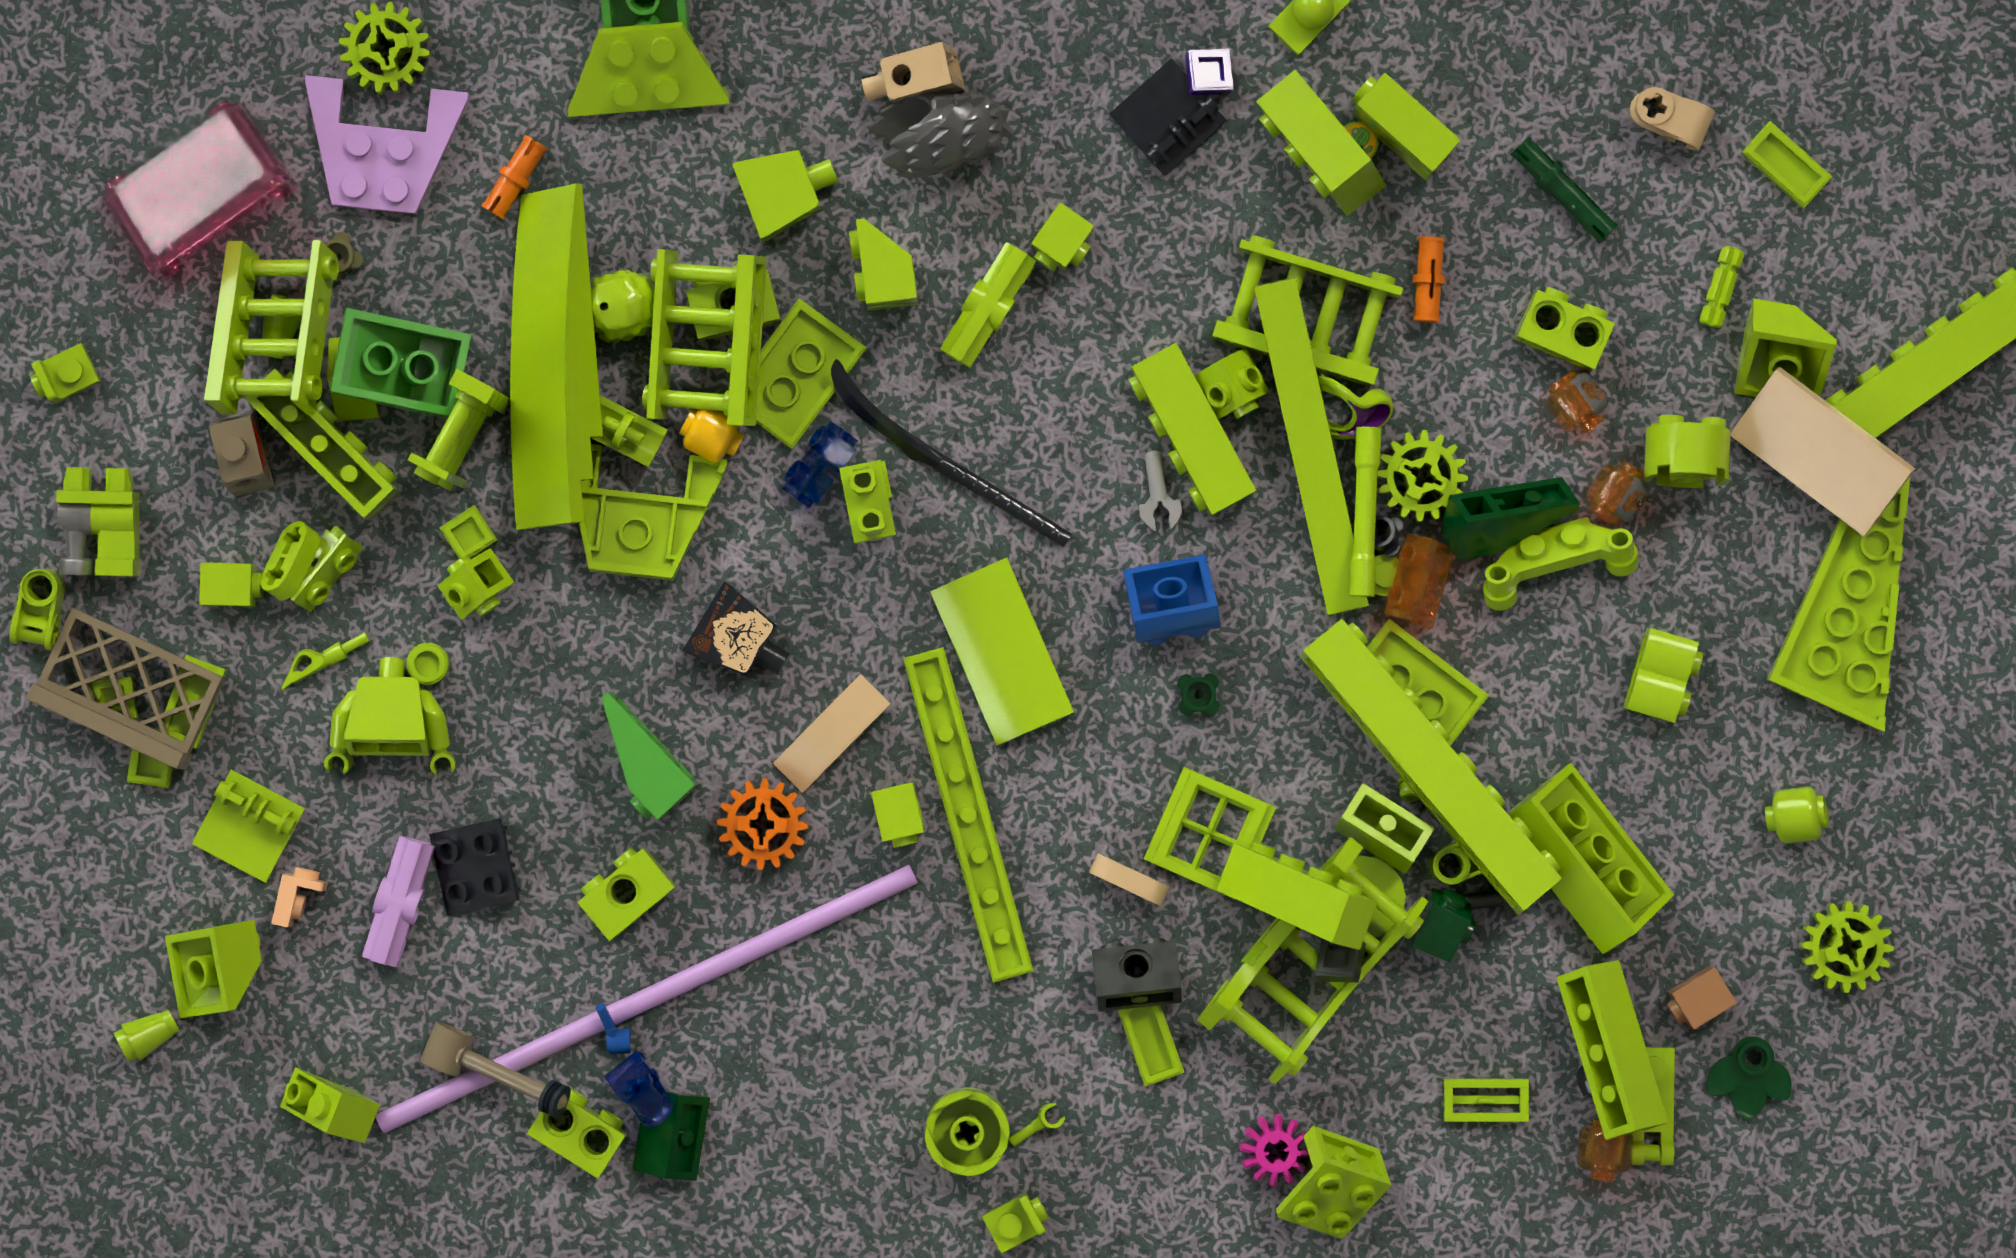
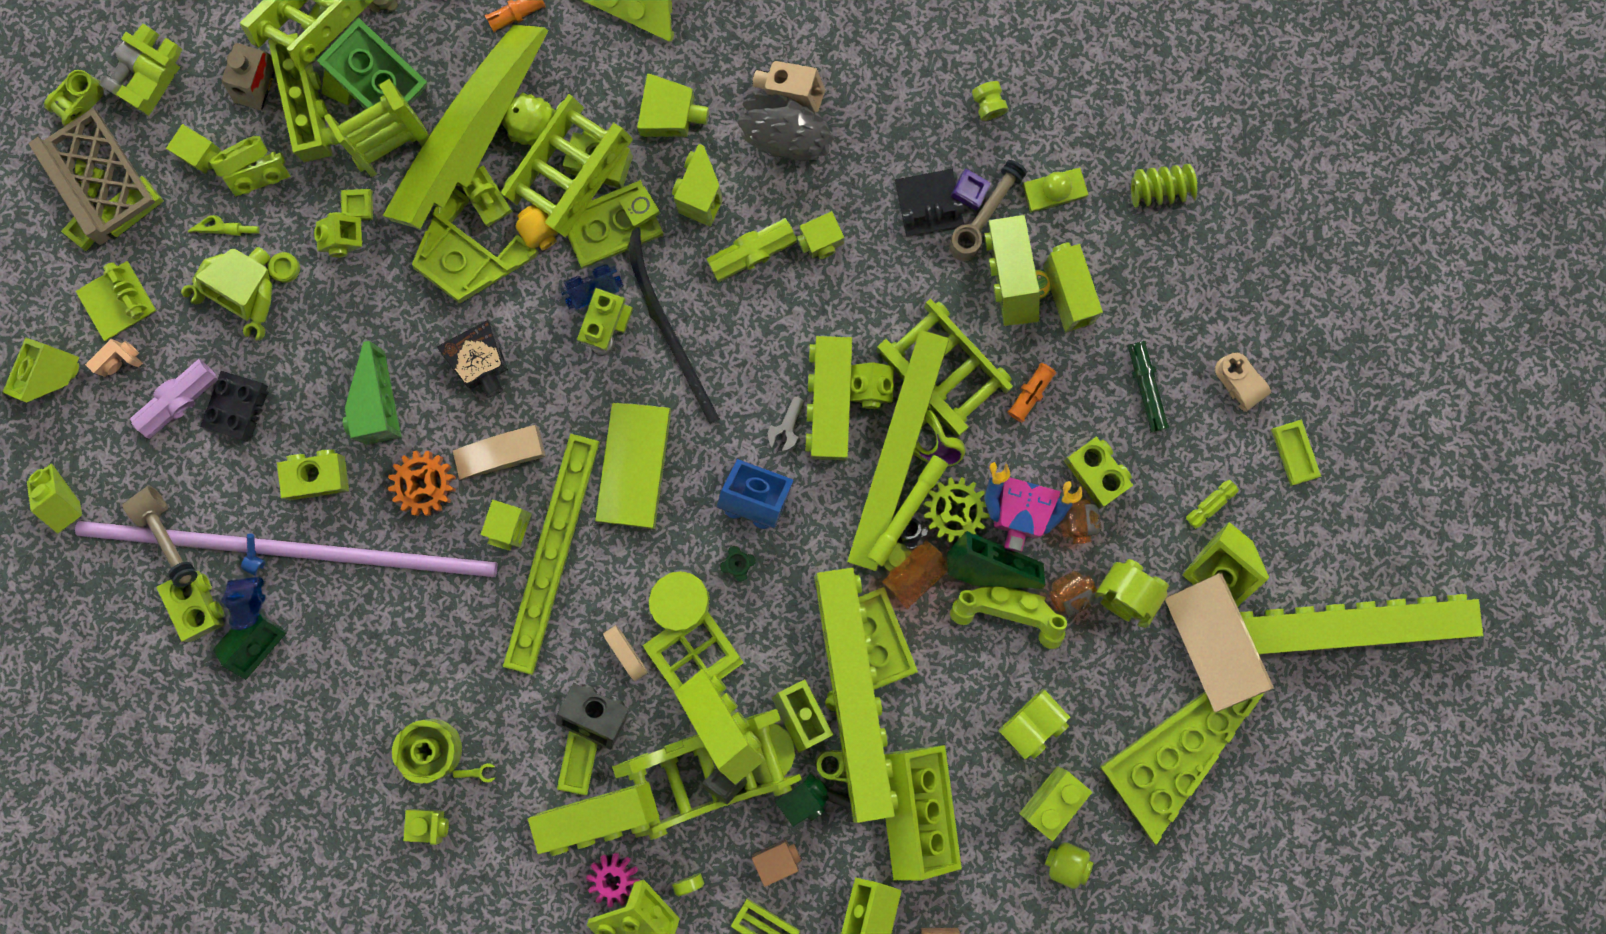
camera: 35 degrees right, 5 degrees down
(821, 333) = (639, 207): none -> lime tile
(1157, 781) = (679, 601): none -> lime tile
(1211, 1091) = (594, 818): none -> lime brick
(1248, 21) = (1013, 173): none -> dark tan piece
(1366, 1103) = (688, 884): none -> lime tile
(1454, 1015) = (776, 862): none -> medium nougat brick
(1502, 425) = (1025, 507): none -> torso
(1738, 752) = (1055, 802): none -> lime brick

